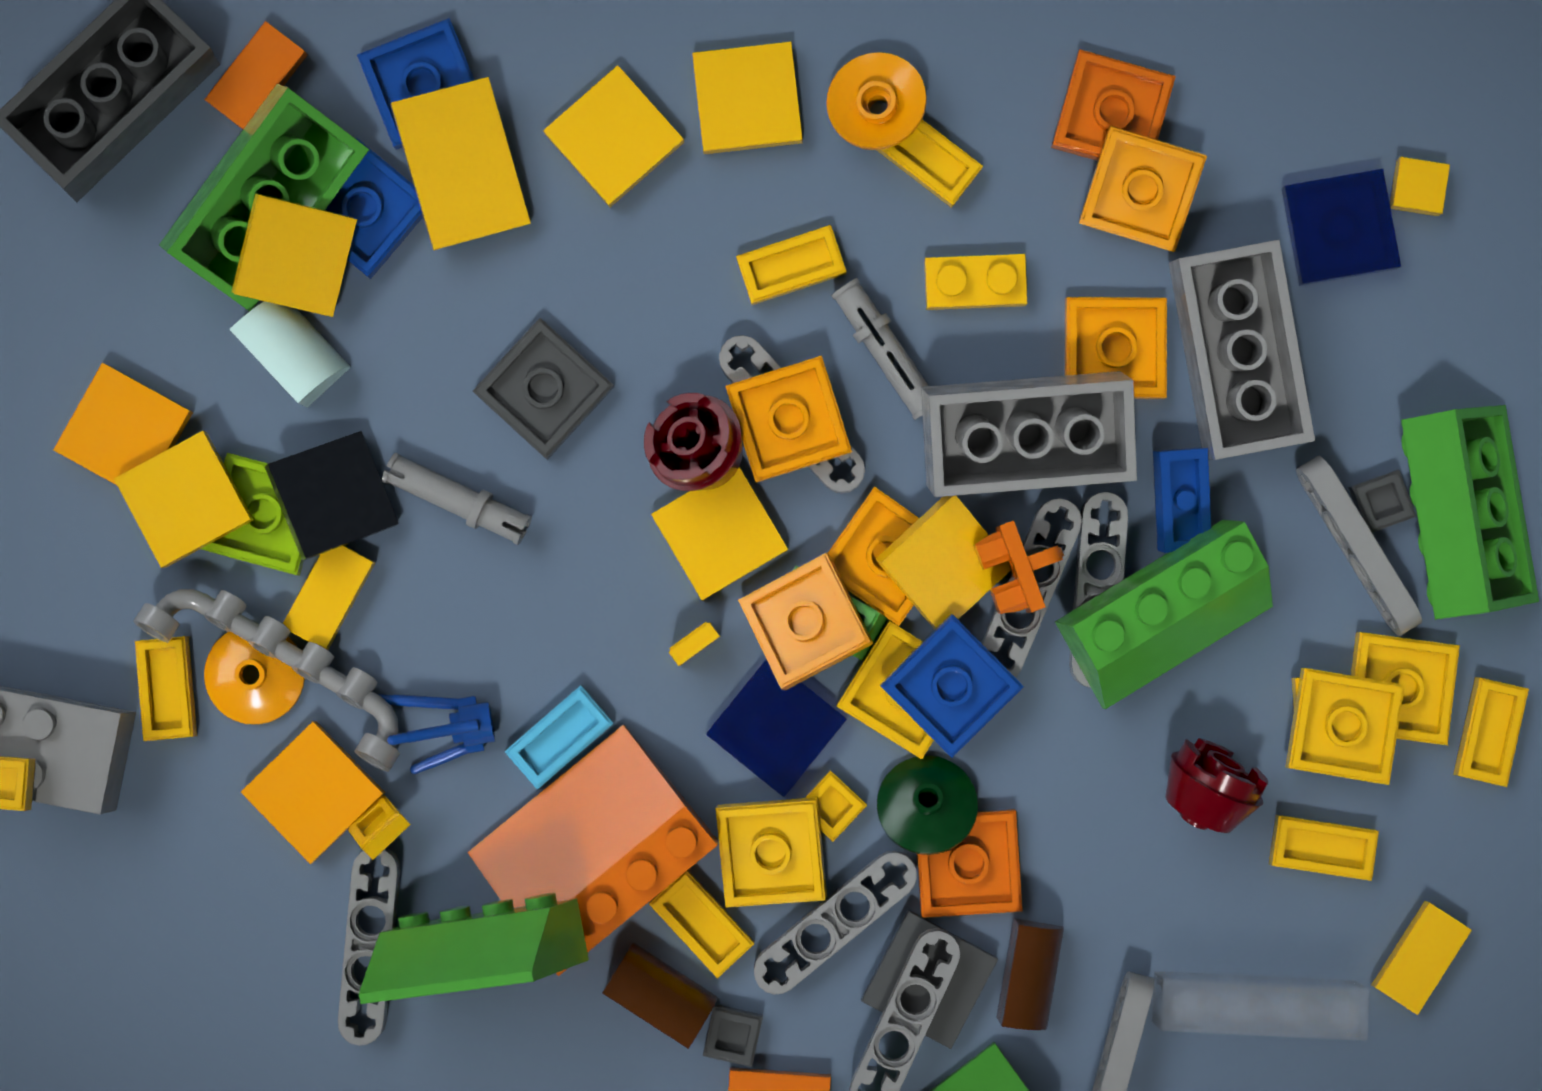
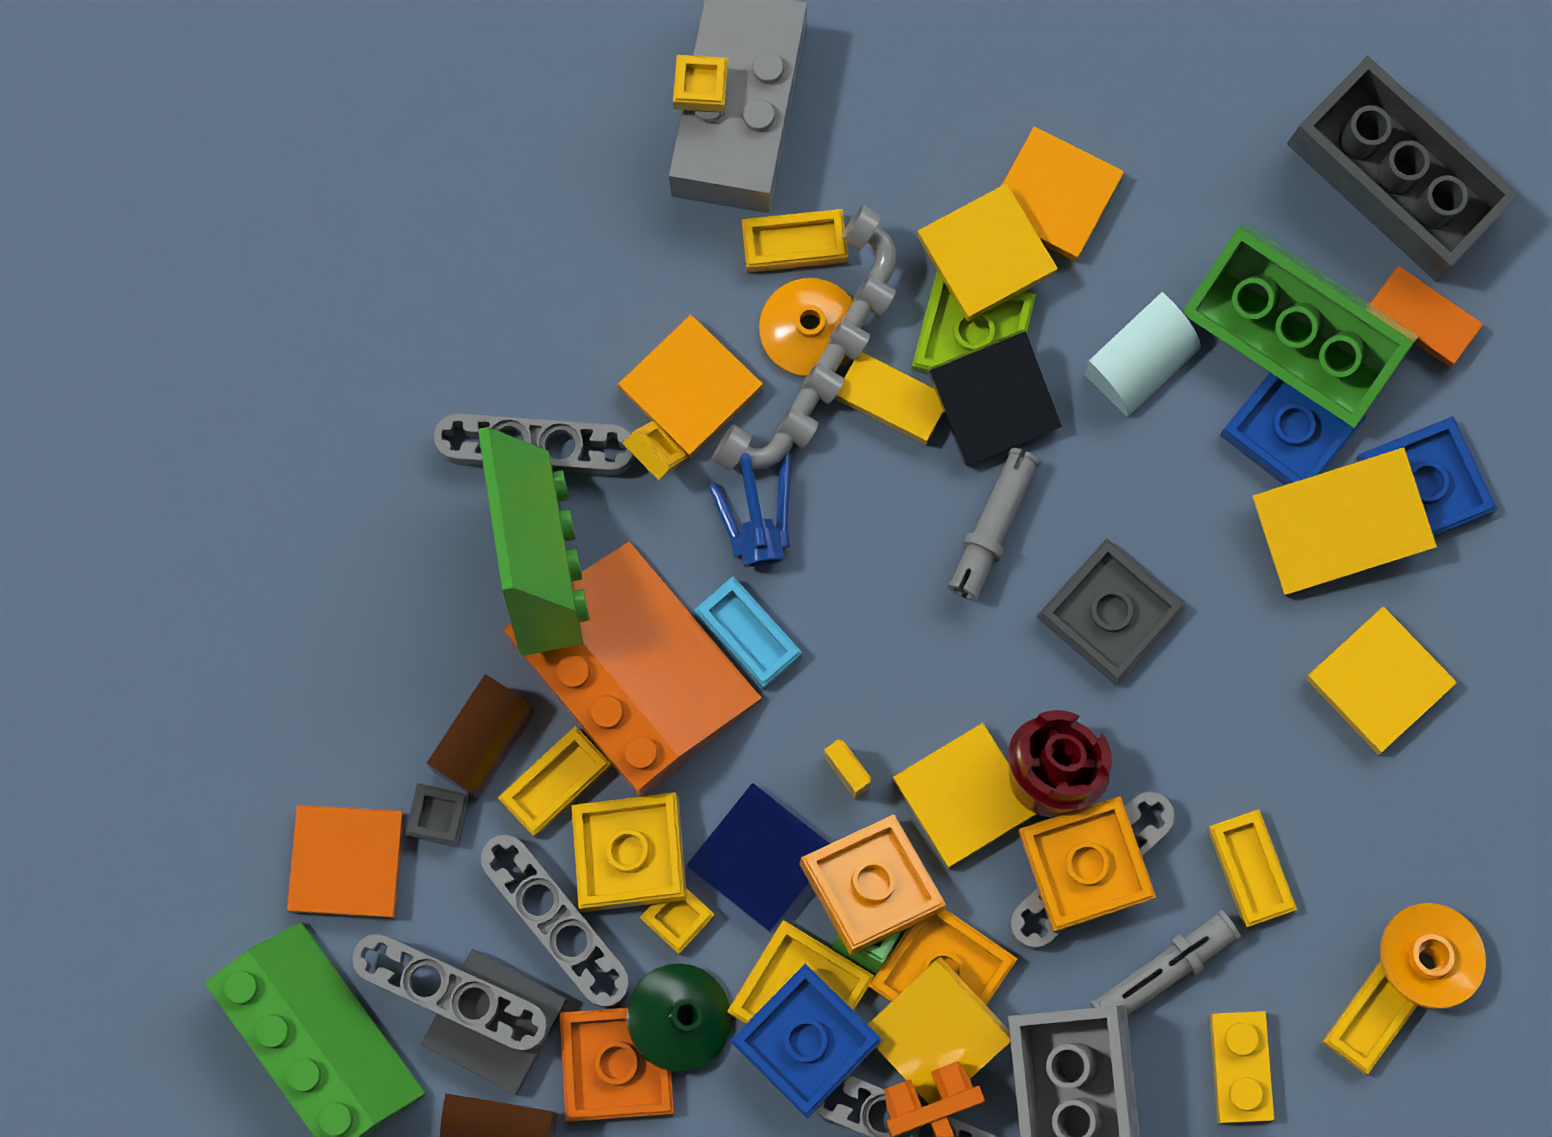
camera: 90 degrees right, 10 degrees down
(294, 255) = (1240, 354): yellow tile -> none
(747, 98) = (1429, 820): yellow tile -> none

